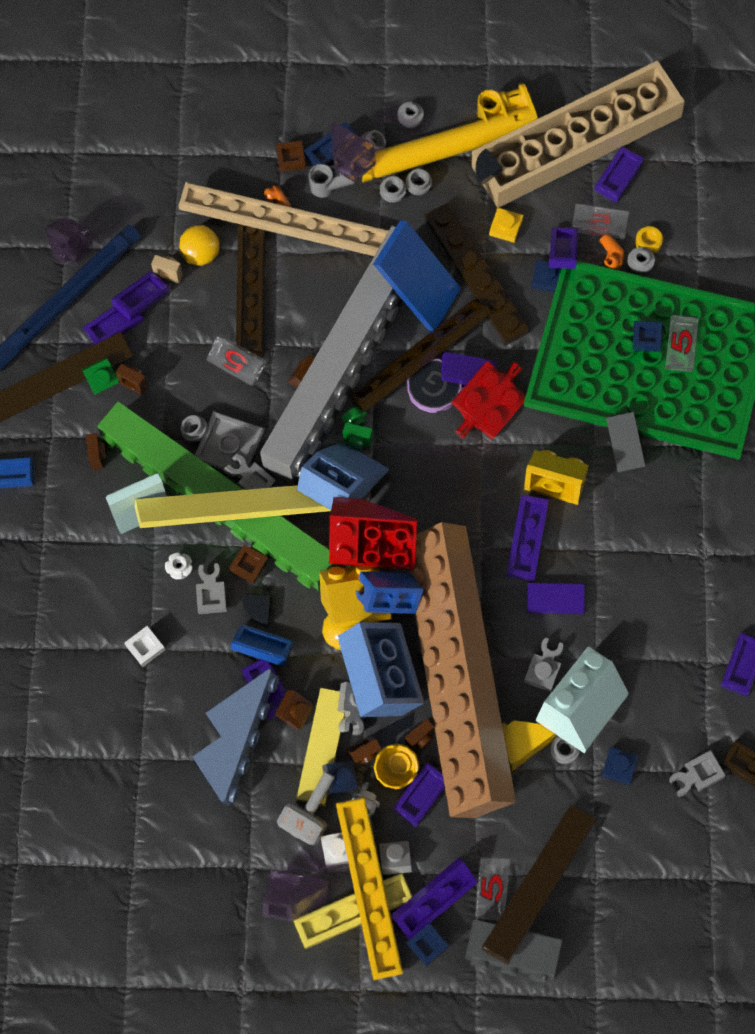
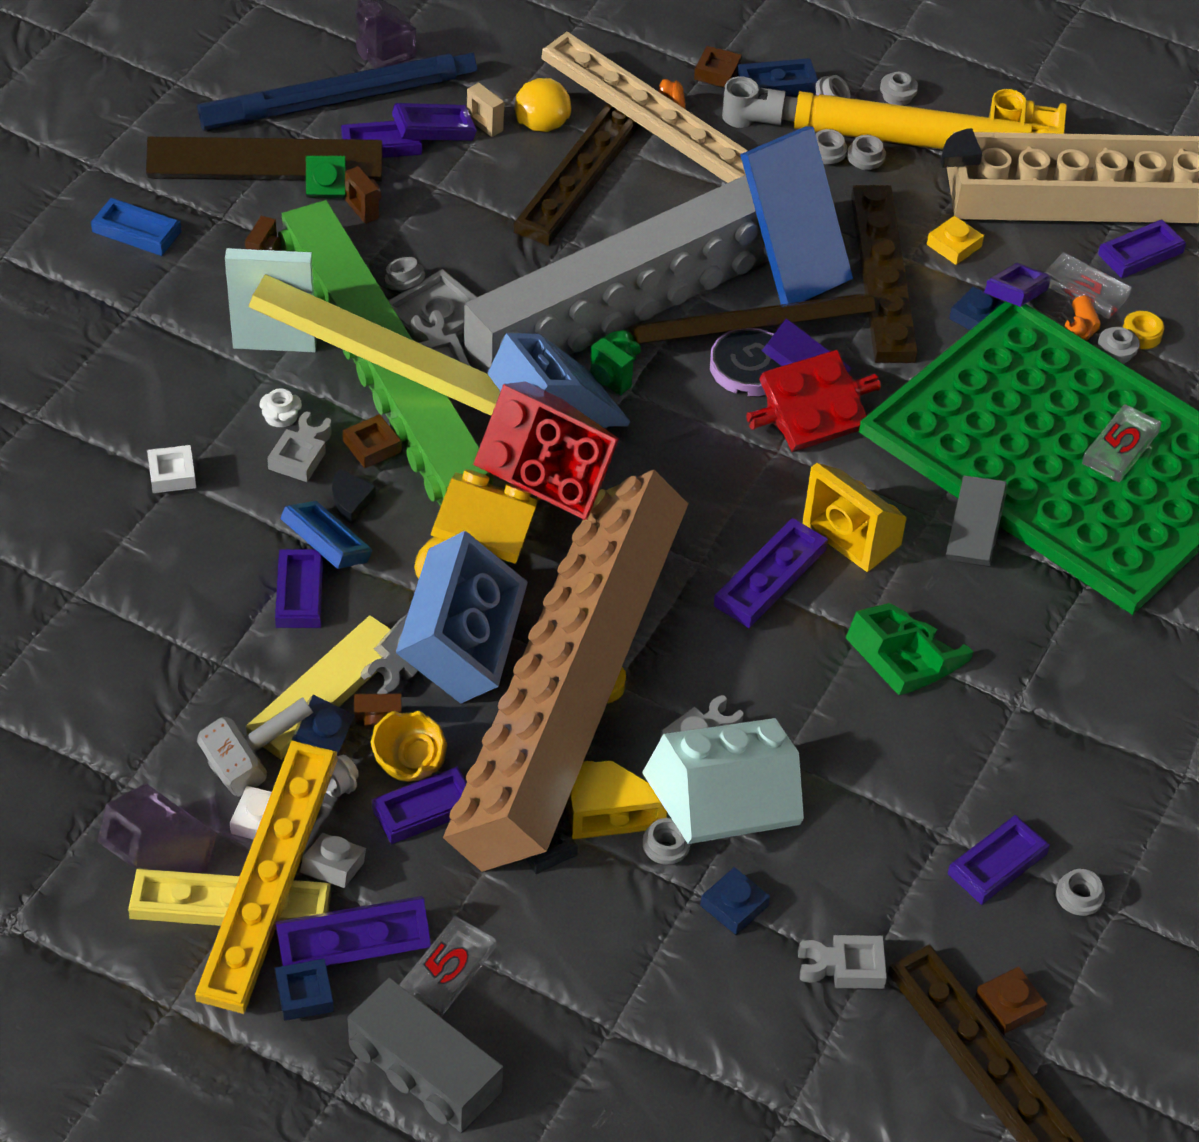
camera: 20 degrees right, 20 degrees down
(236, 360) = (507, 230): clear tile -> none
(237, 724) = (224, 603): sand blue slope -> none
(294, 709) = (316, 622): reddish brown plate -> none
(351, 153) = (793, 75): clear purple slope -> none
(389, 592) = (531, 526): blue hinge -> none
(420, 736) = (466, 727): reddish brown plate -> none
(538, 885) = (513, 982): dark brown tile -> none
(555, 598) = (767, 660): dark purple tile -> none
(626, 551) = (903, 648): none -> green slope
(647, 336) = (1076, 412): dark blue plate -> none

